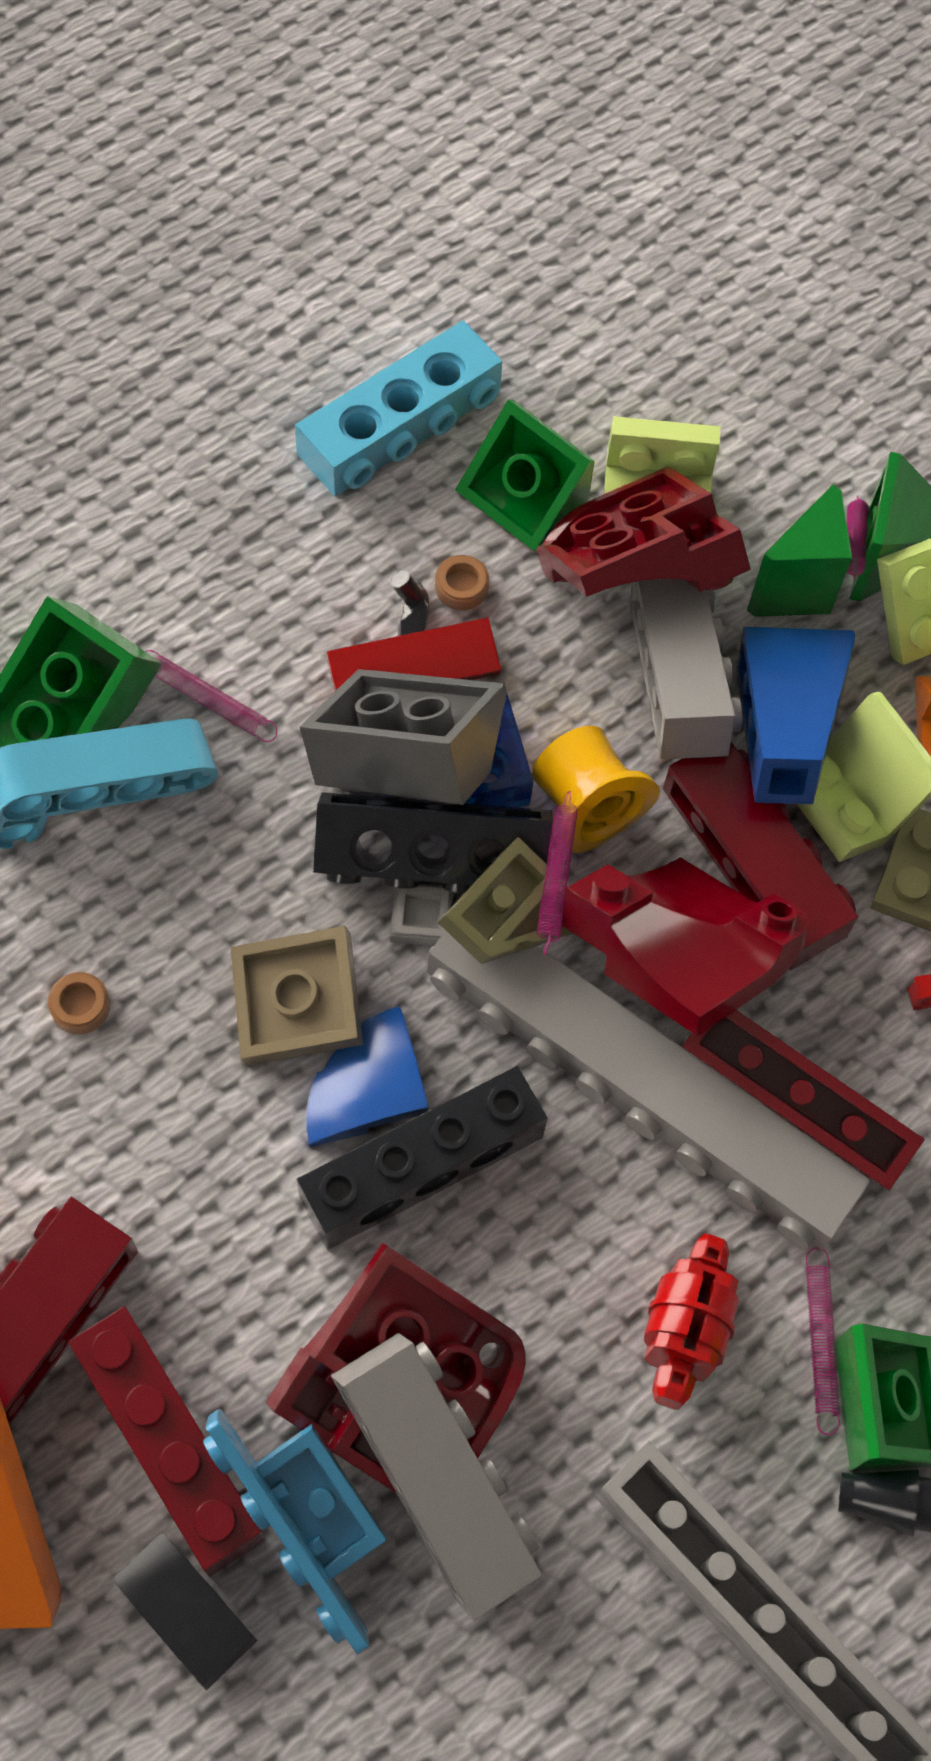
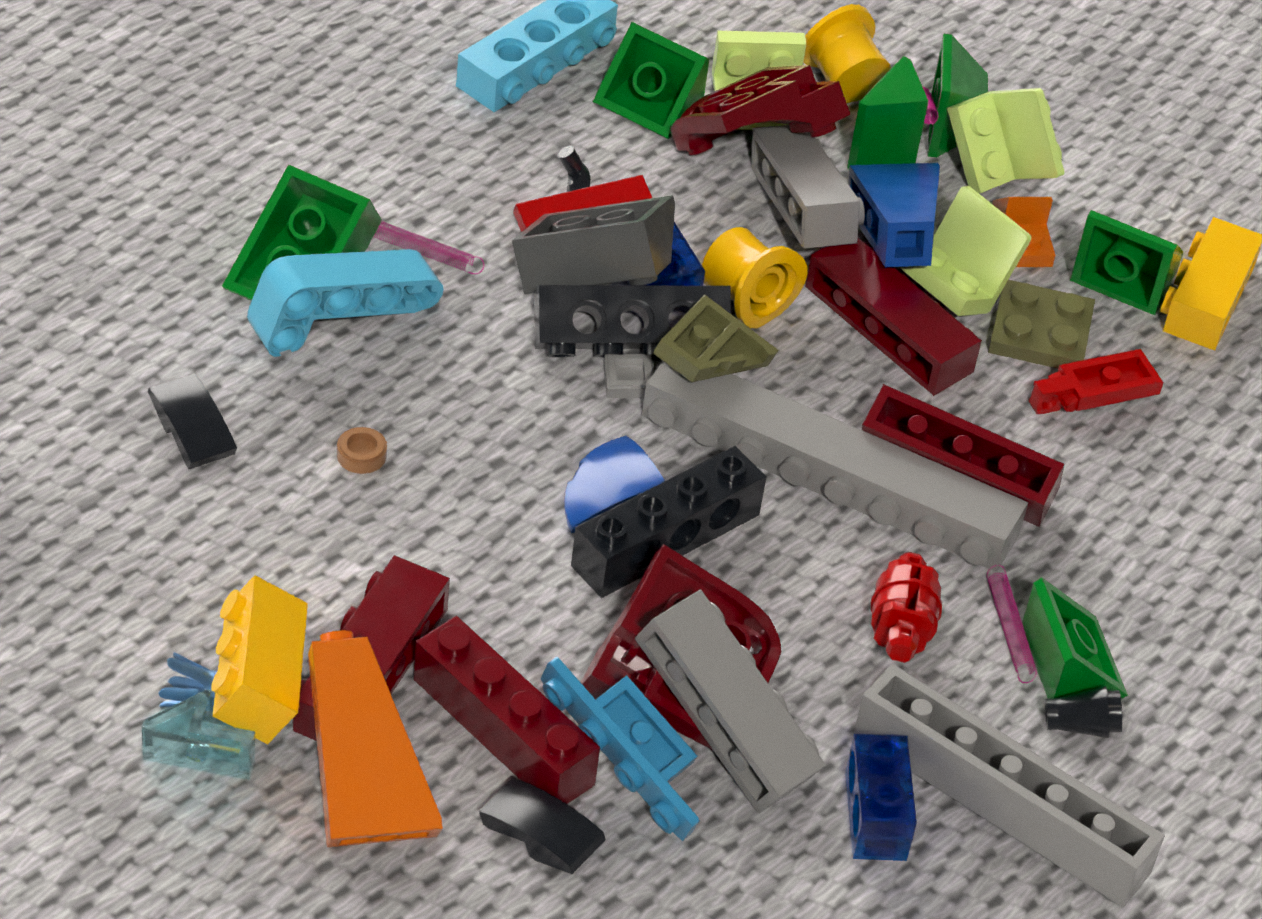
camera: 10 degrees left, 20 degrees down
(296, 995) = (541, 429): dark tan tile -> none
(461, 582) = (612, 160): medium nougat tile -> none
(554, 873) = (740, 312): dark pink piece -> none
(605, 1618) = (880, 797): none -> clear blue brick
(685, 938) = (846, 356): dark red slope -> none
(772, 452) = (845, 51): none -> yellow piece

